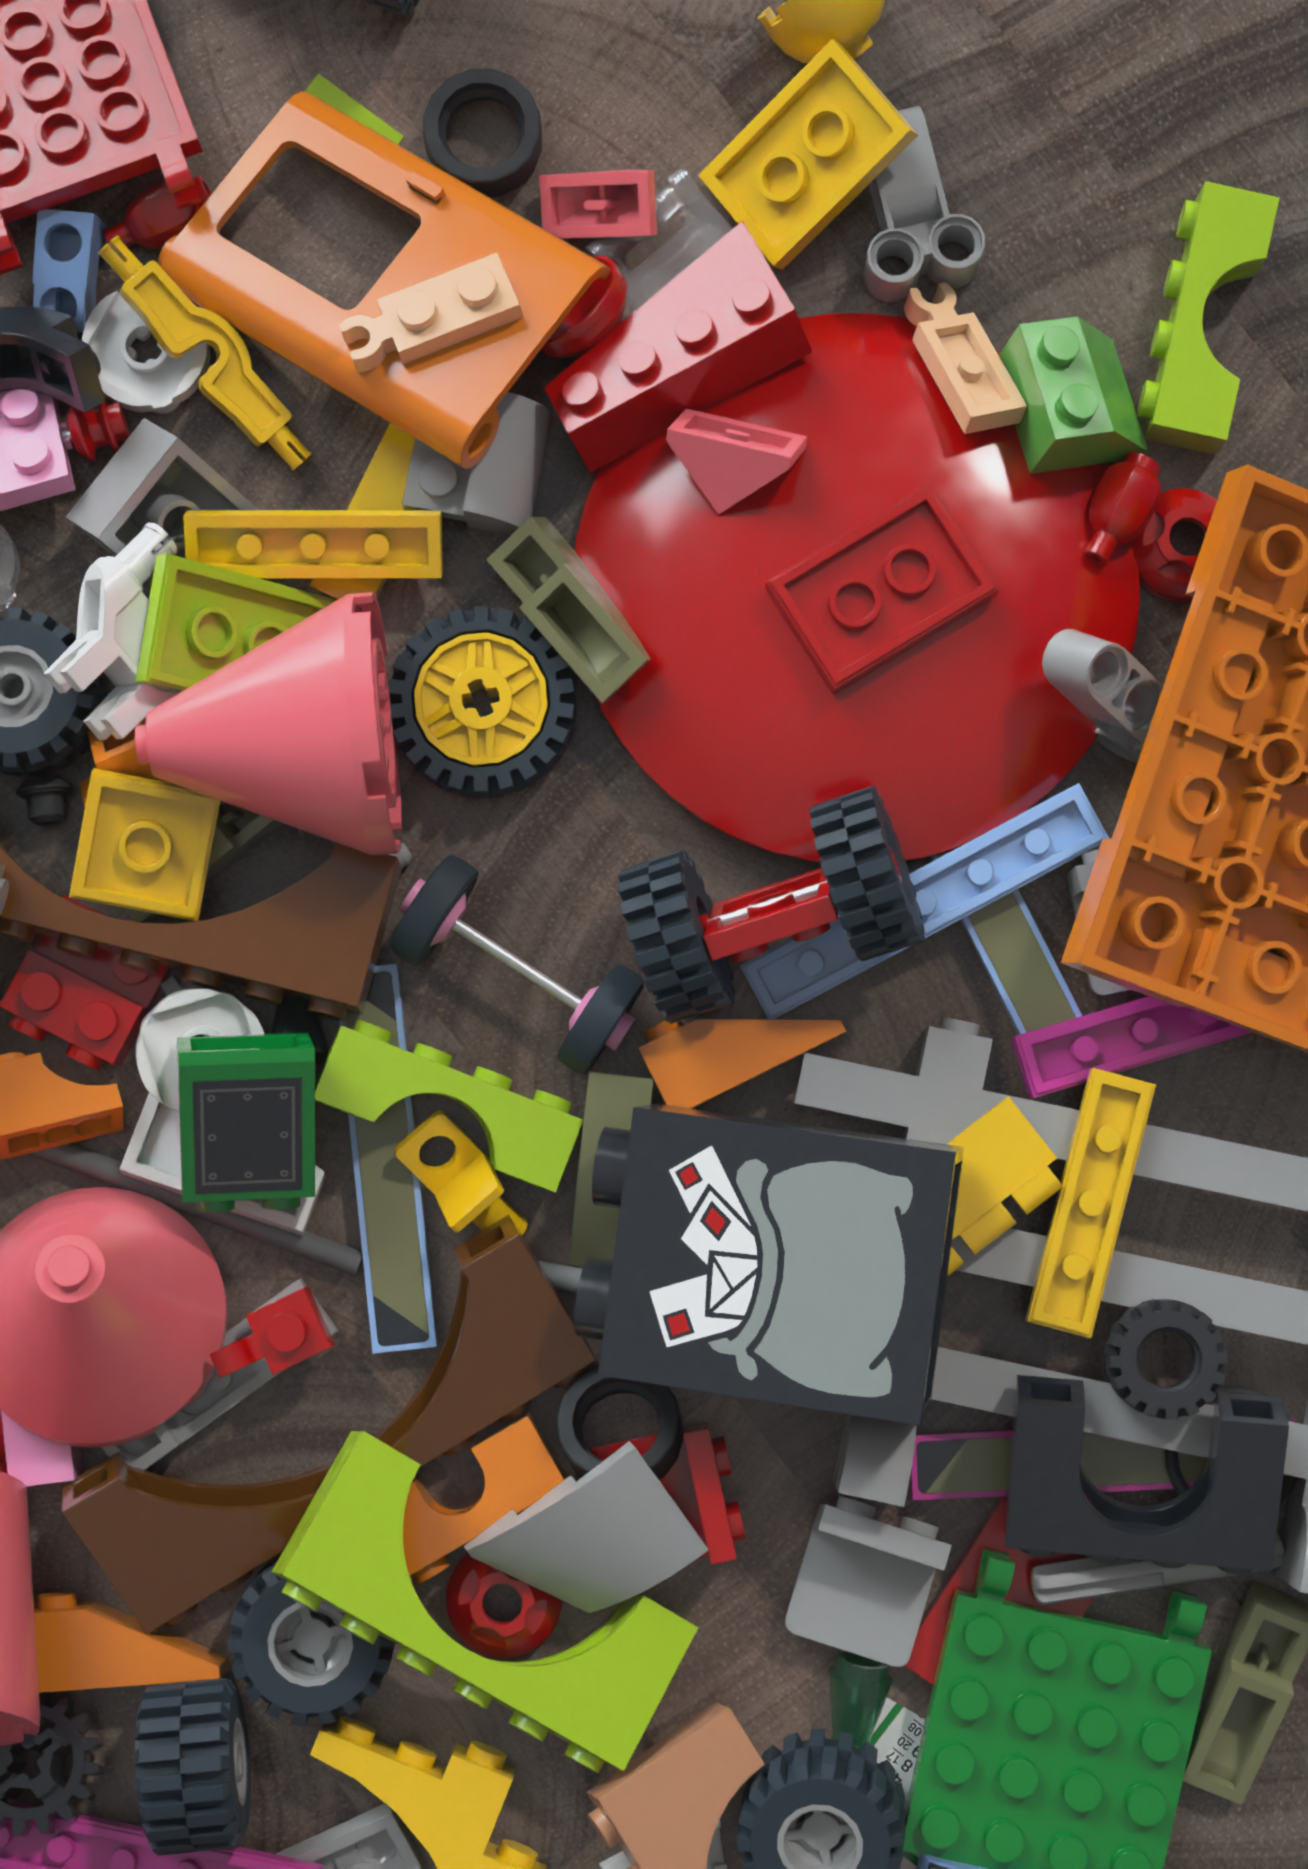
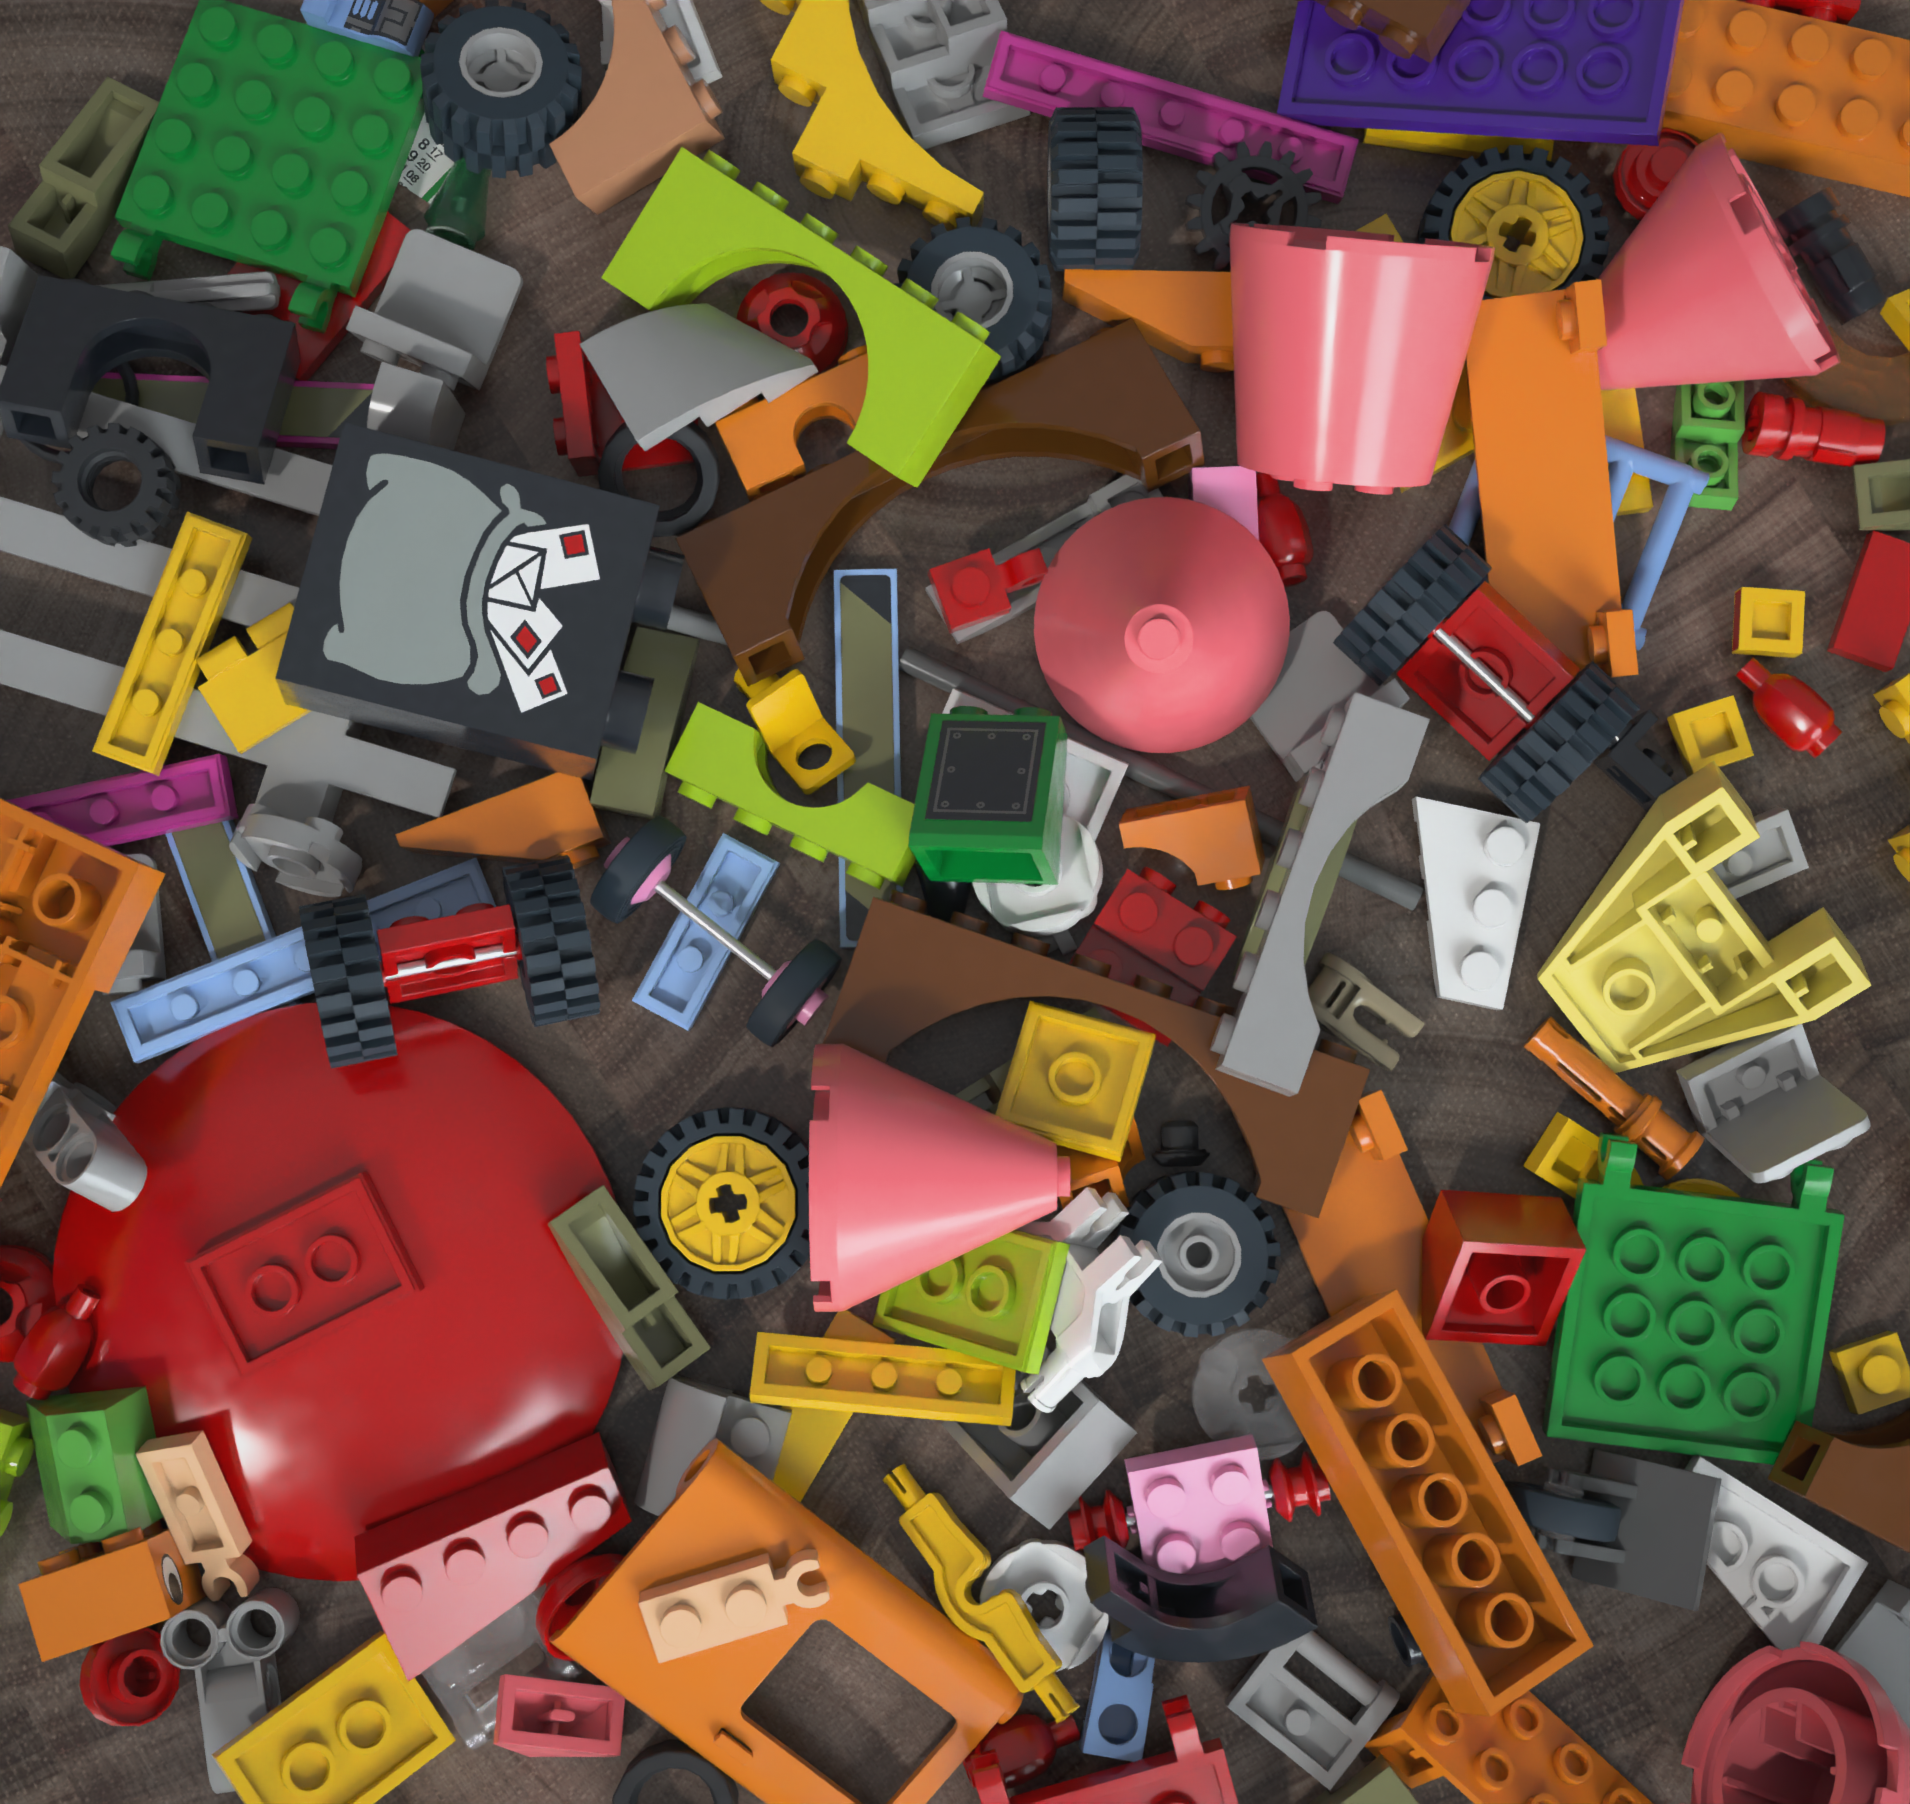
camera: 175 degrees left, 0 degrees up
(547, 941) = (691, 957): none -> light blue tile
(730, 455) = (442, 1429): coral slope -> none
(942, 1001) = (305, 854): none -> light grey plate
(1014, 204) = (128, 1679): none -> red plate
(1037, 275) = (109, 1591): none -> orange brick

